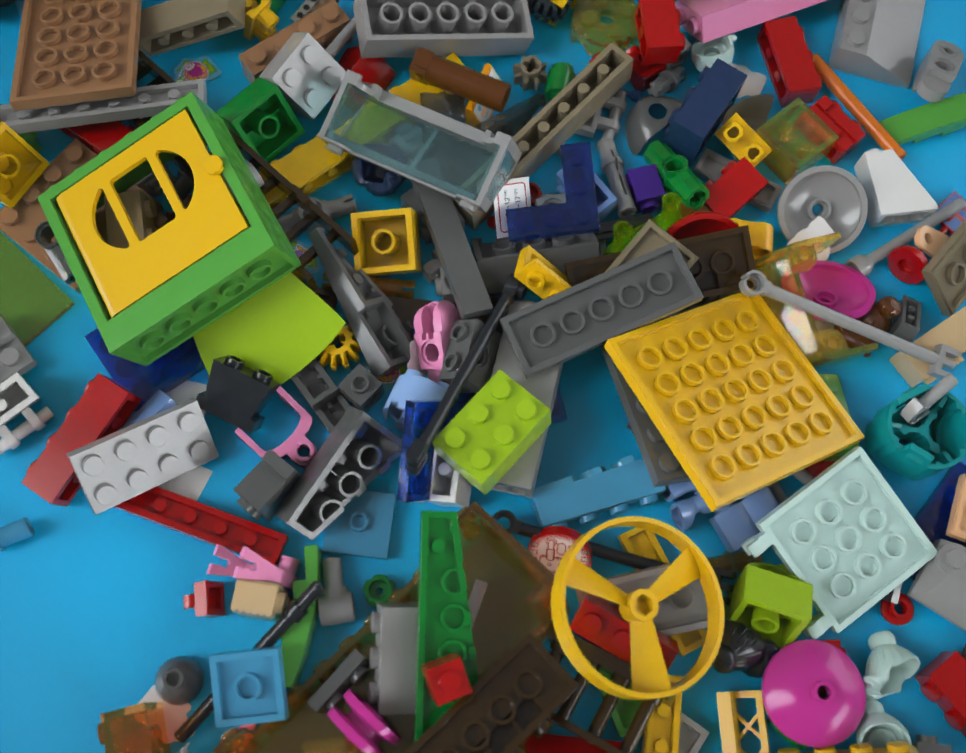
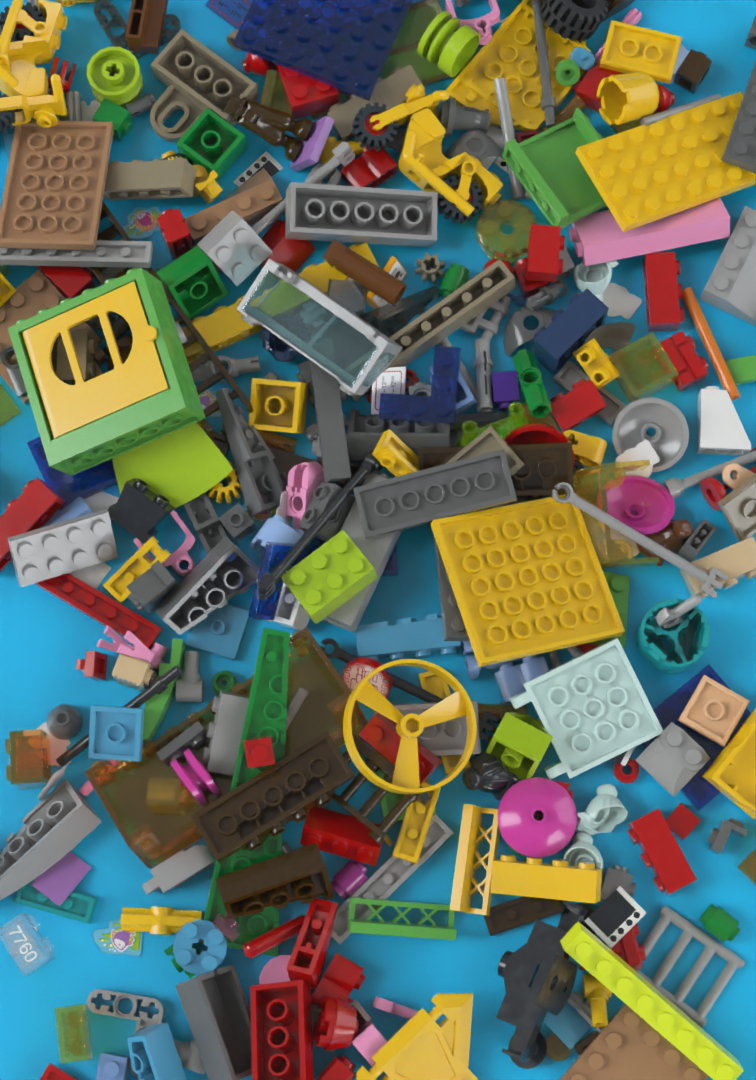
camera: 20 degrees right, 5 degrees up
(229, 68) = (175, 232): none -> red brick
(240, 465) = (134, 568): none -> yellow plate

